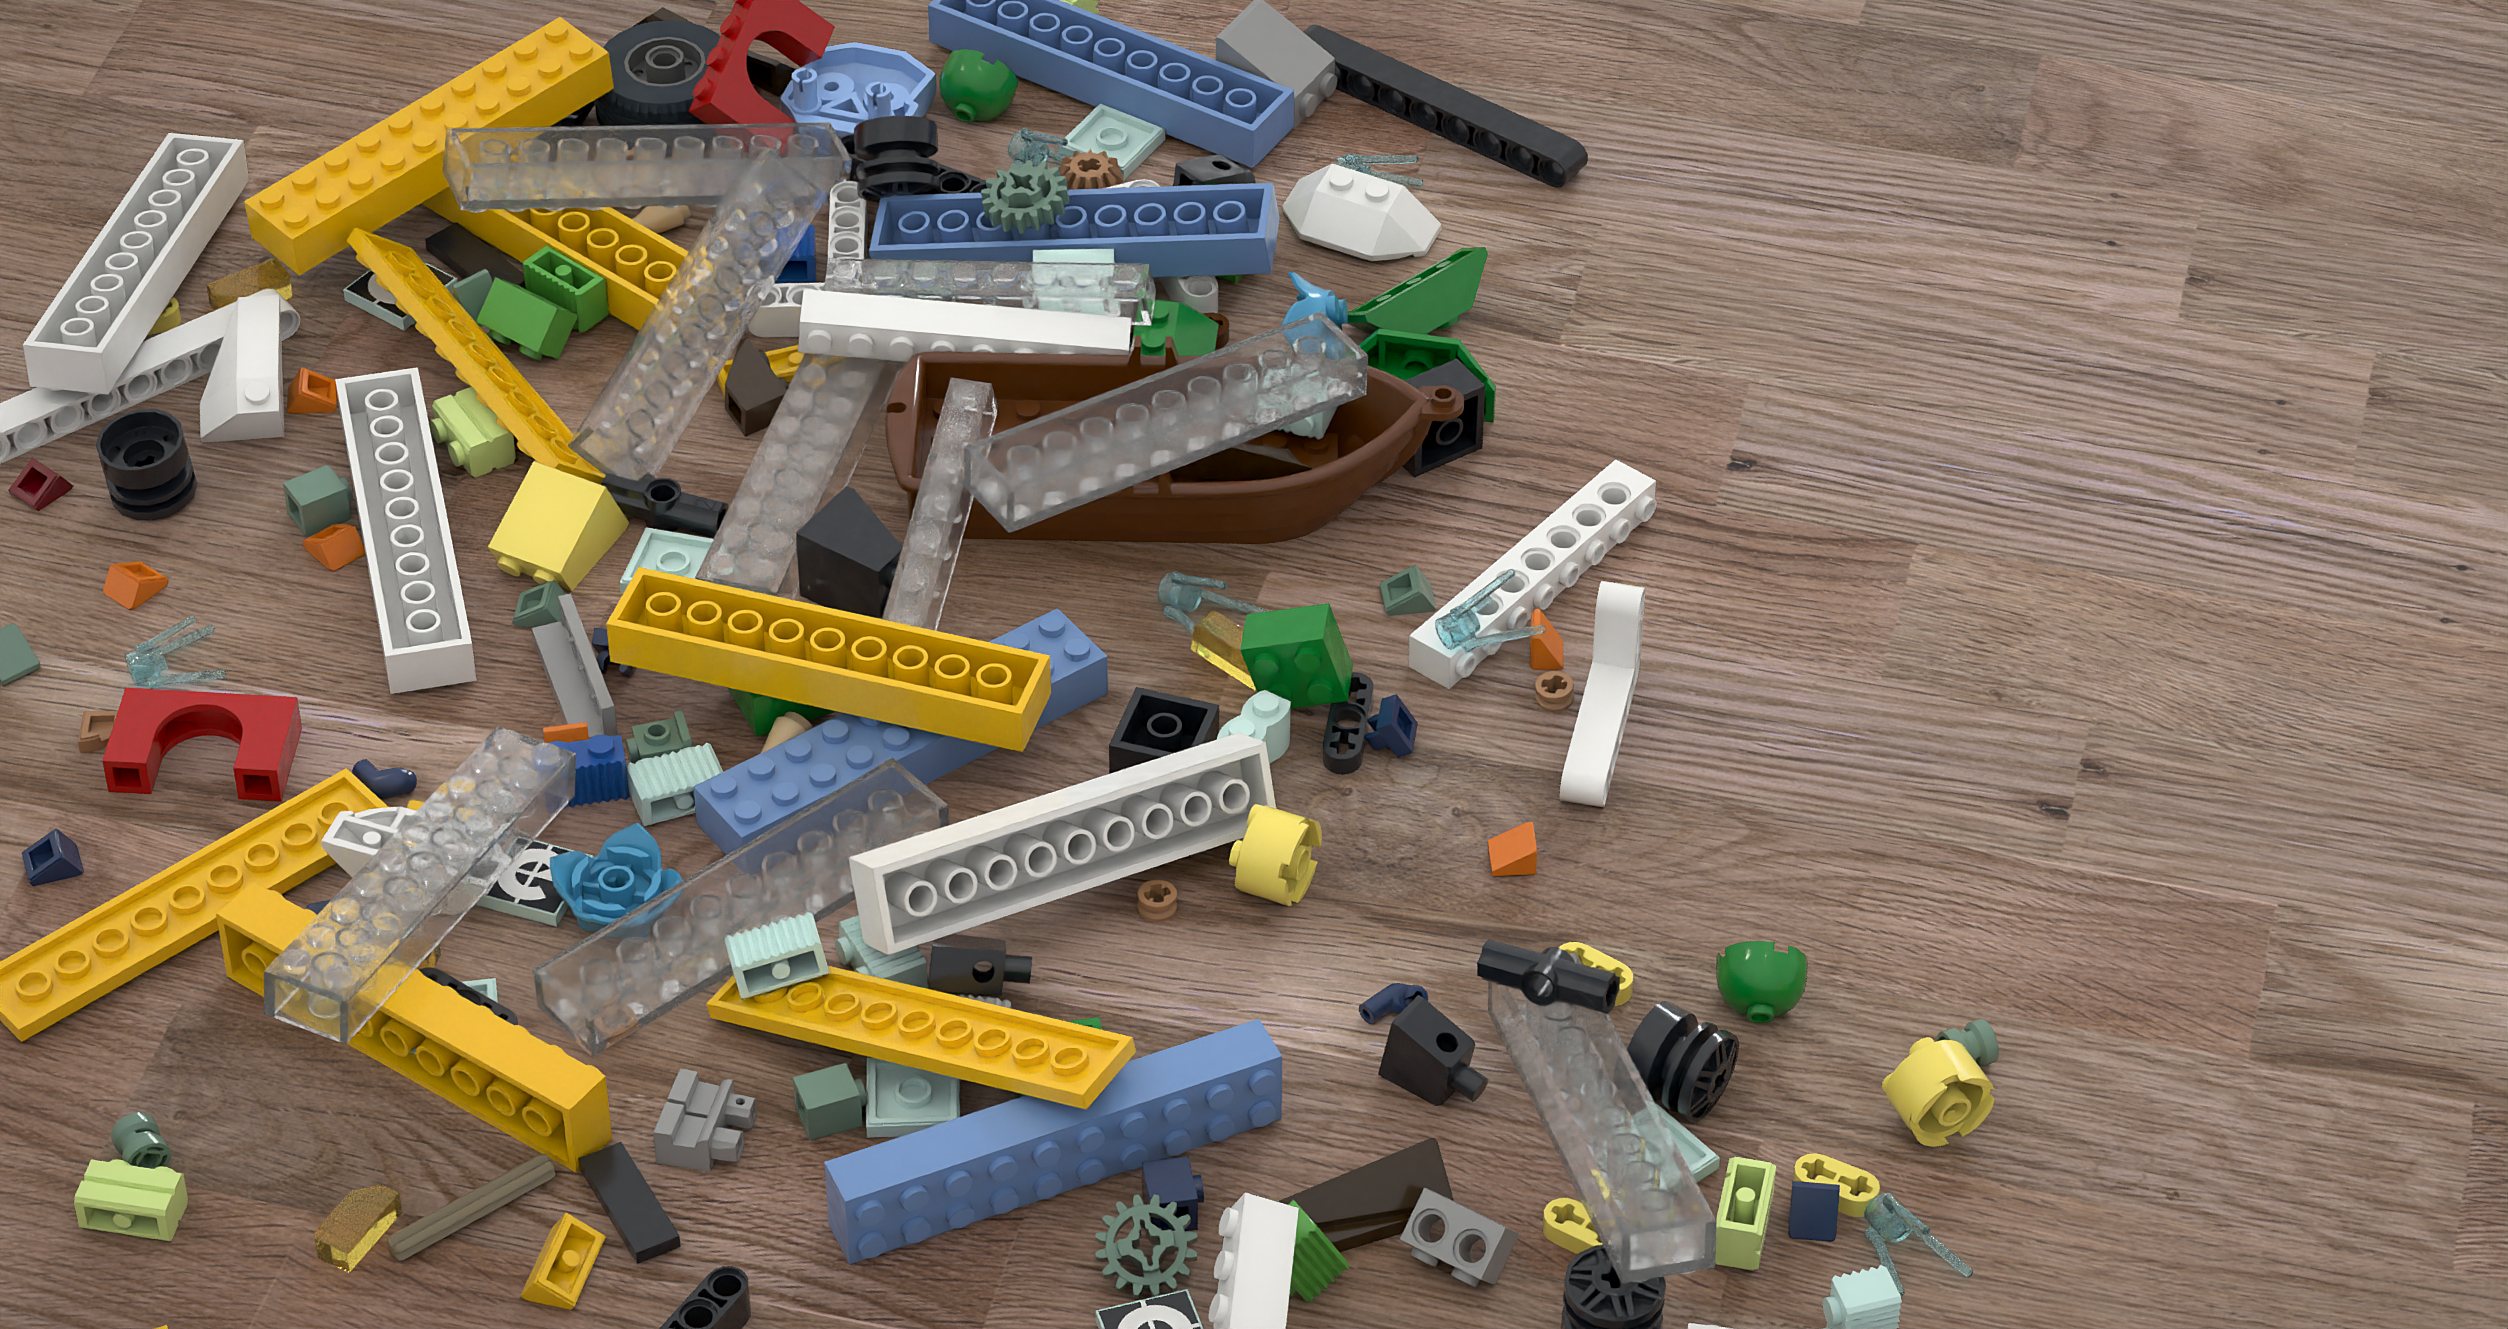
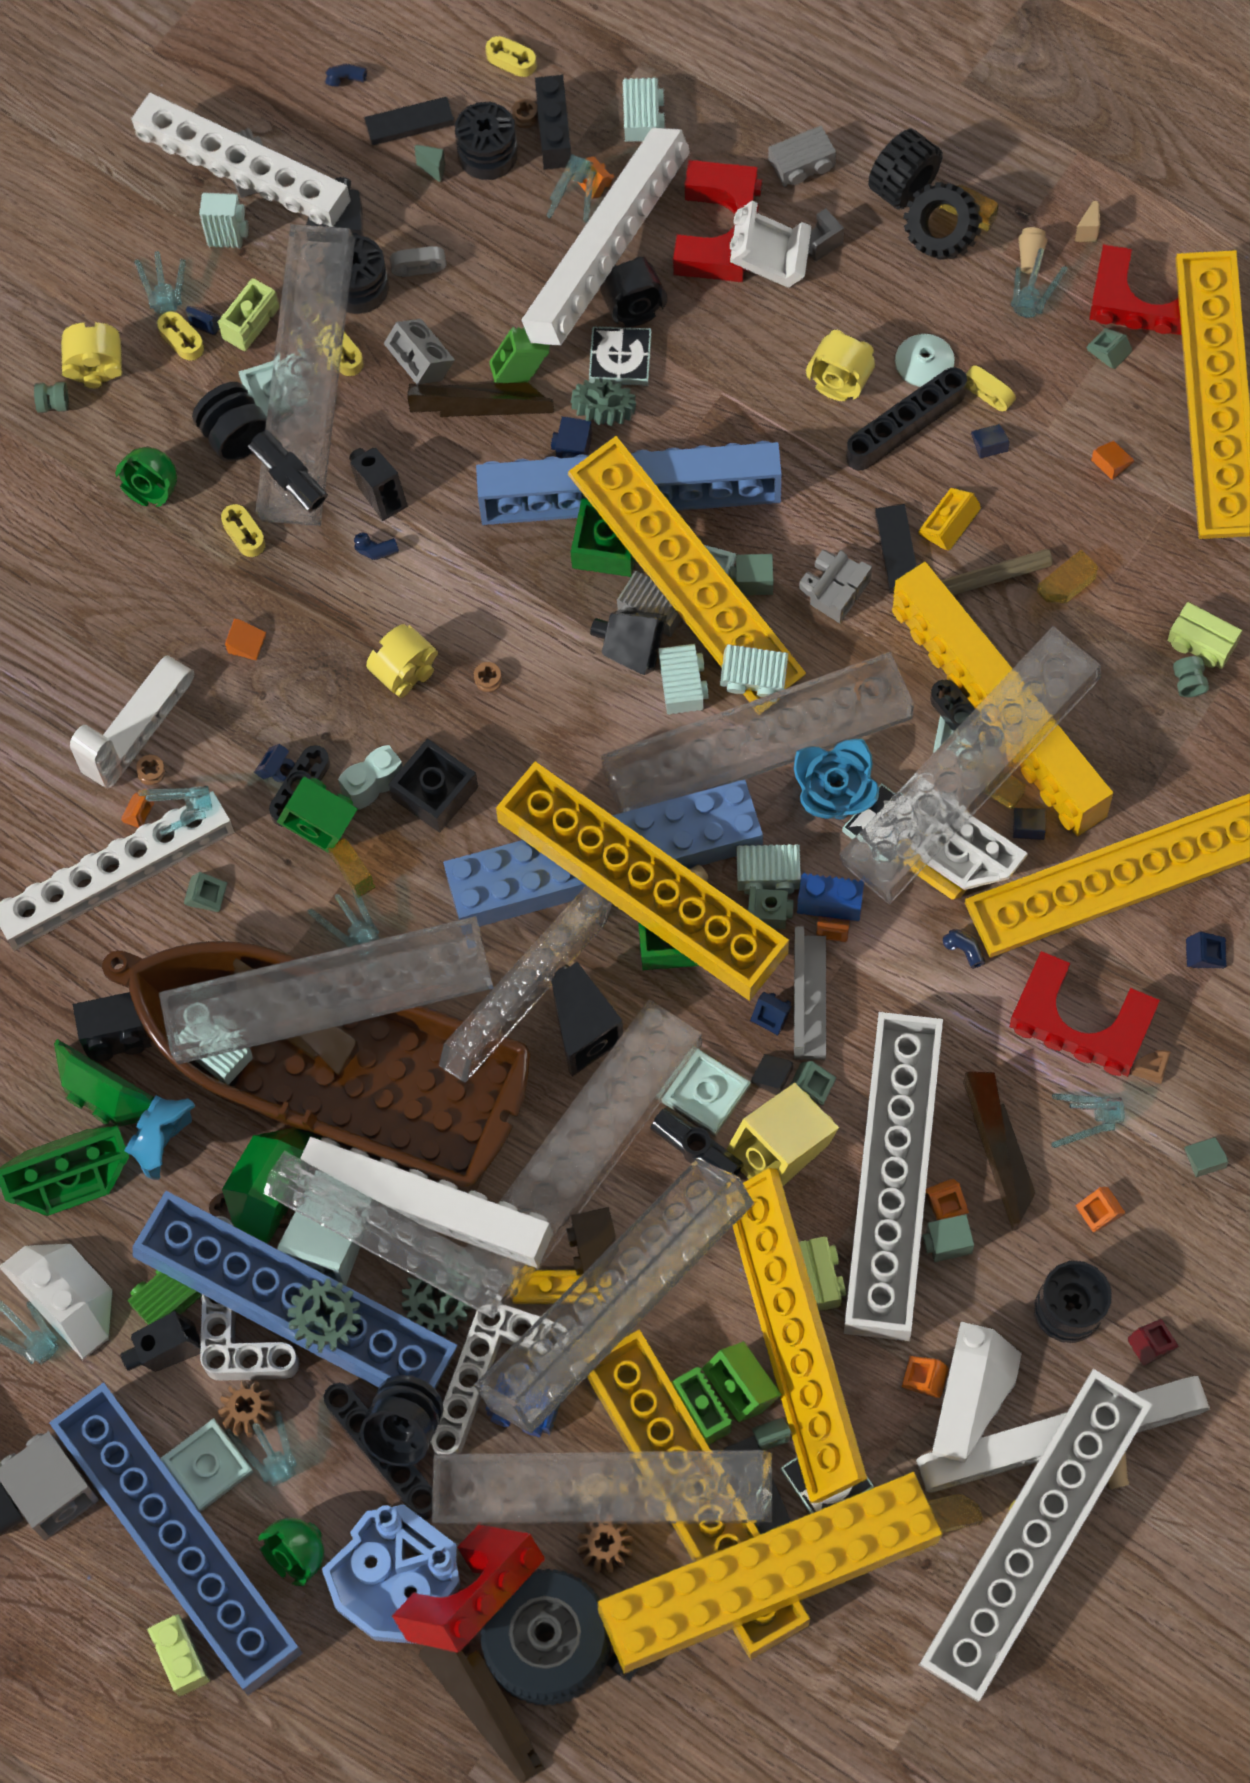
camera: 155 degrees left, 25 degrees up
(281, 597) = (1000, 1145): none -> dark brown wedge
(594, 597) = (772, 1073): none -> black slope
(1059, 843) = (537, 686): white brick -> none

